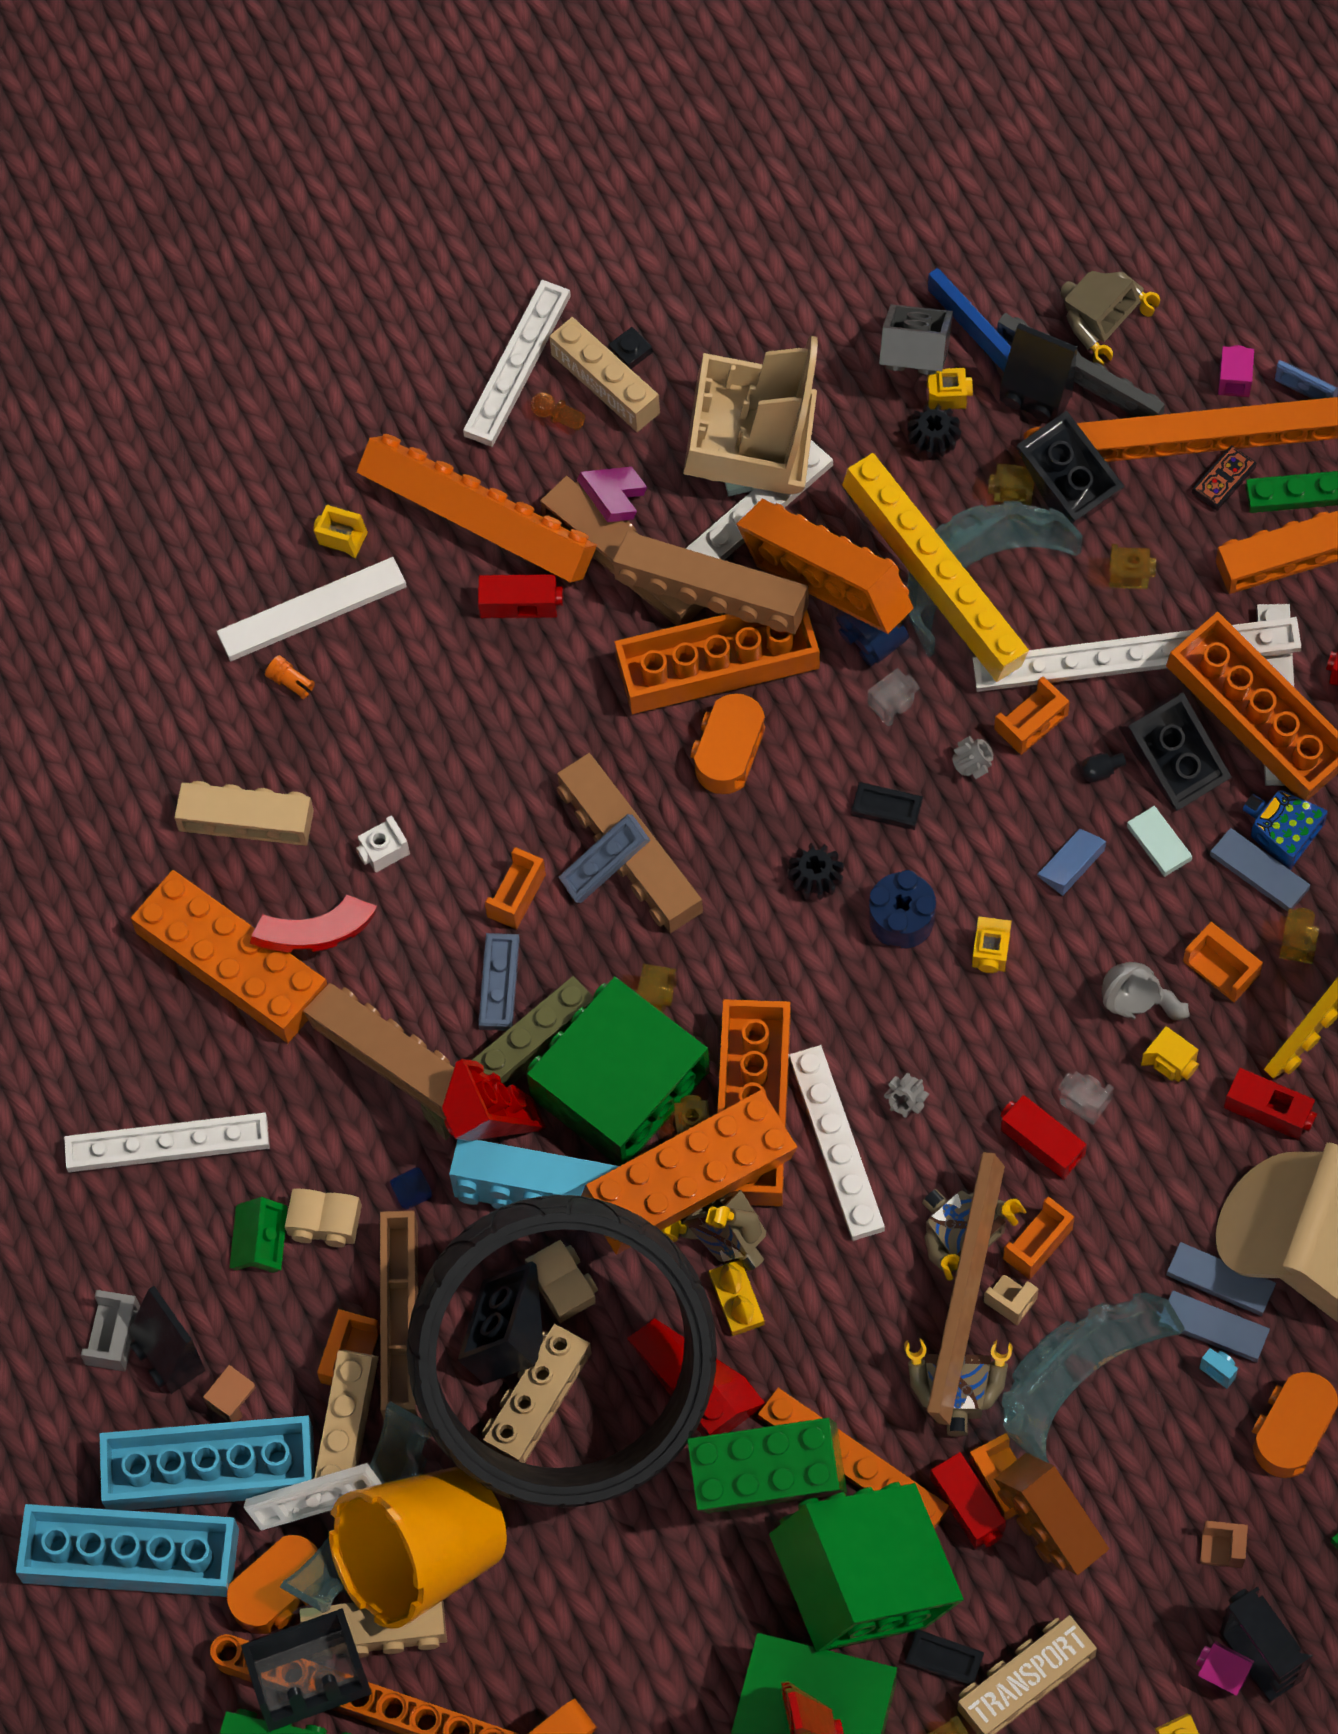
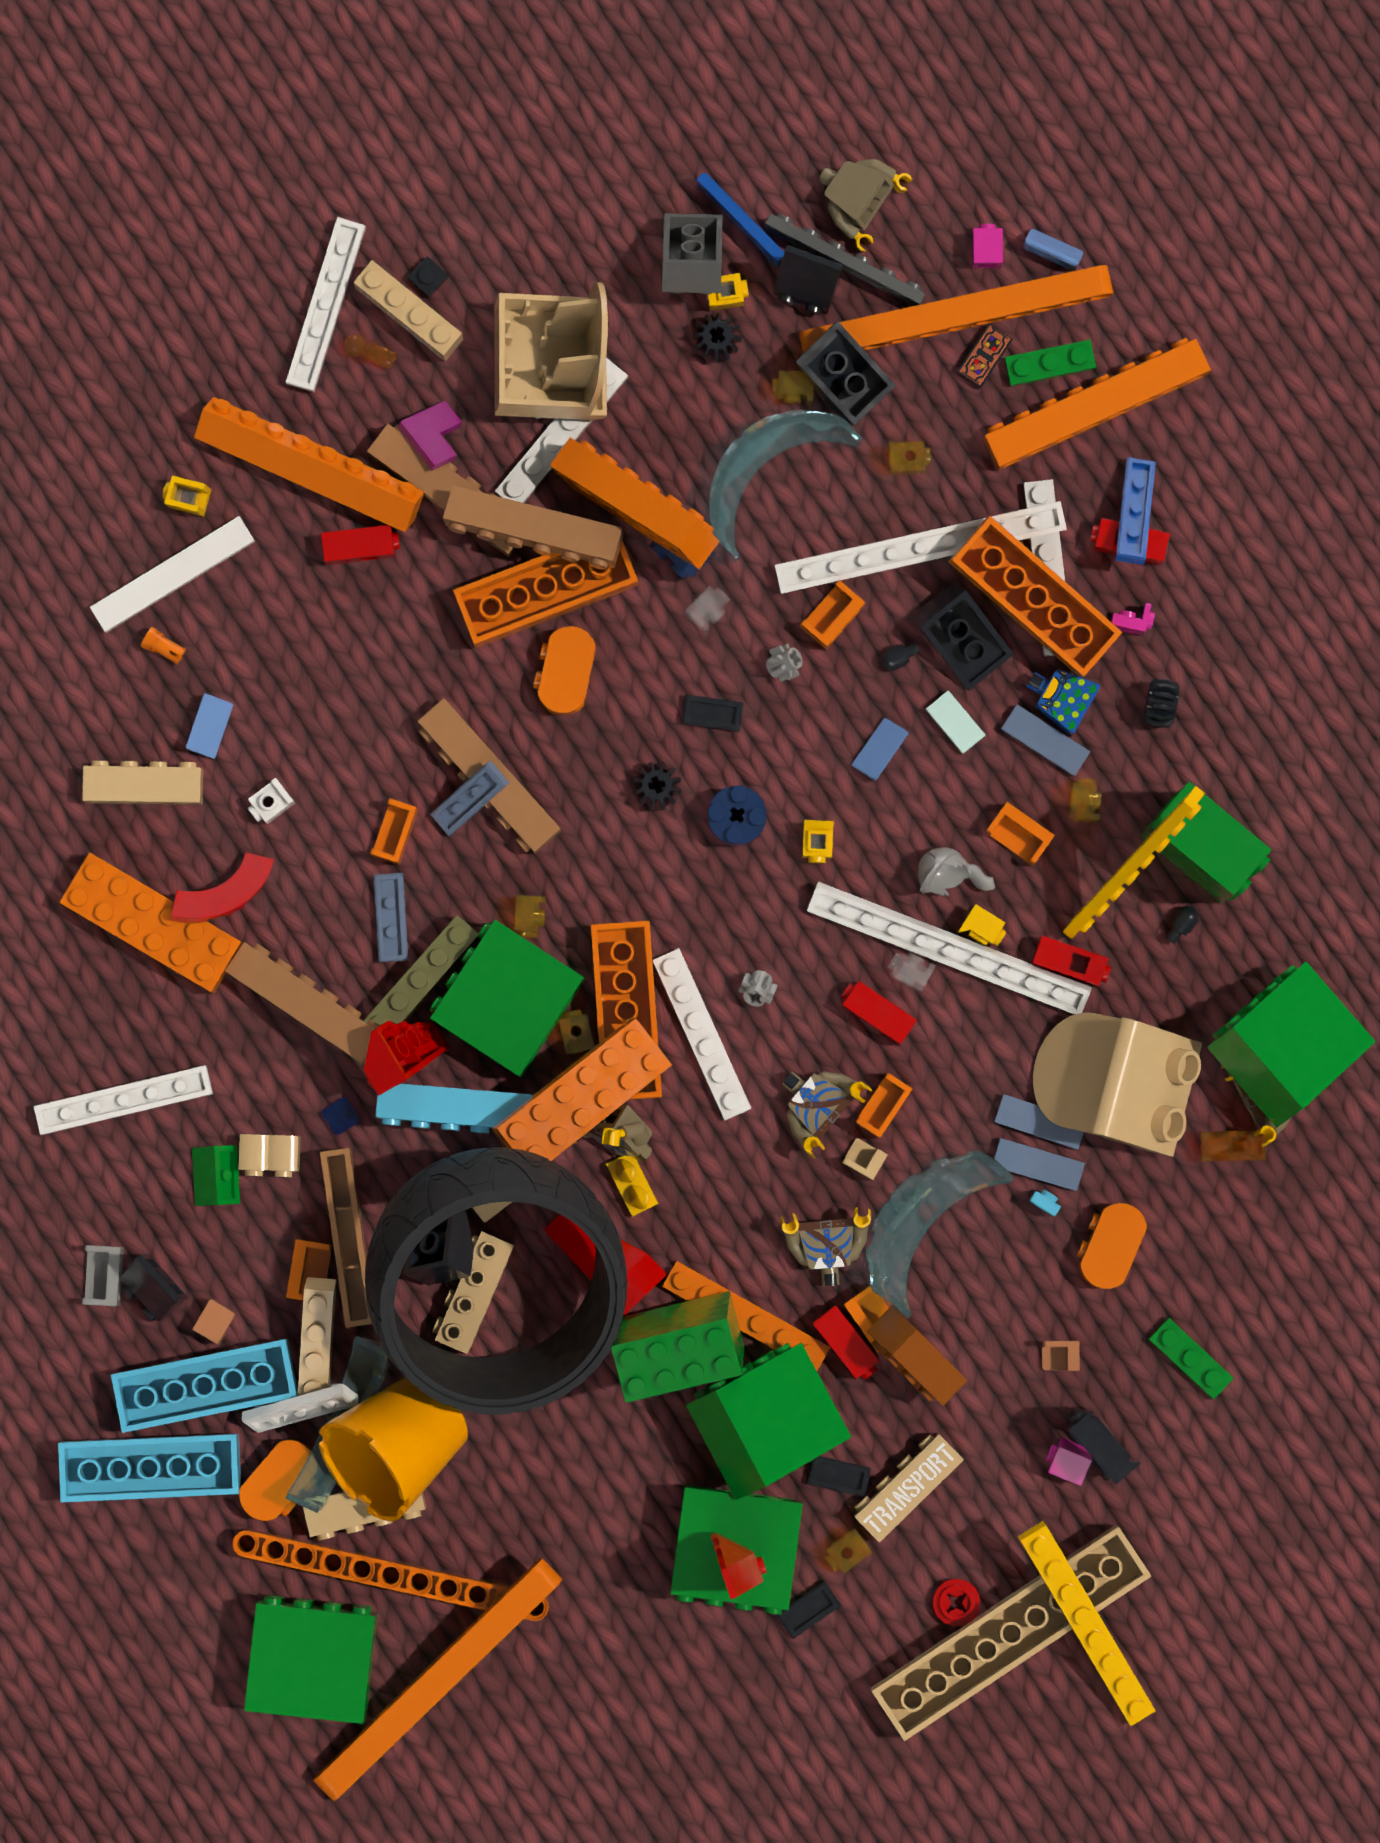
camera: 15 degrees left, 20 degrees up
(305, 1669) = (316, 1560): window -> none
(326, 763) = (209, 726): none -> medium blue slope
(935, 567) = (733, 490): yellow brick -> none
(965, 1289) = (827, 1165): medium nougat tile -> none
(1131, 1076) = (949, 949): none -> white plate

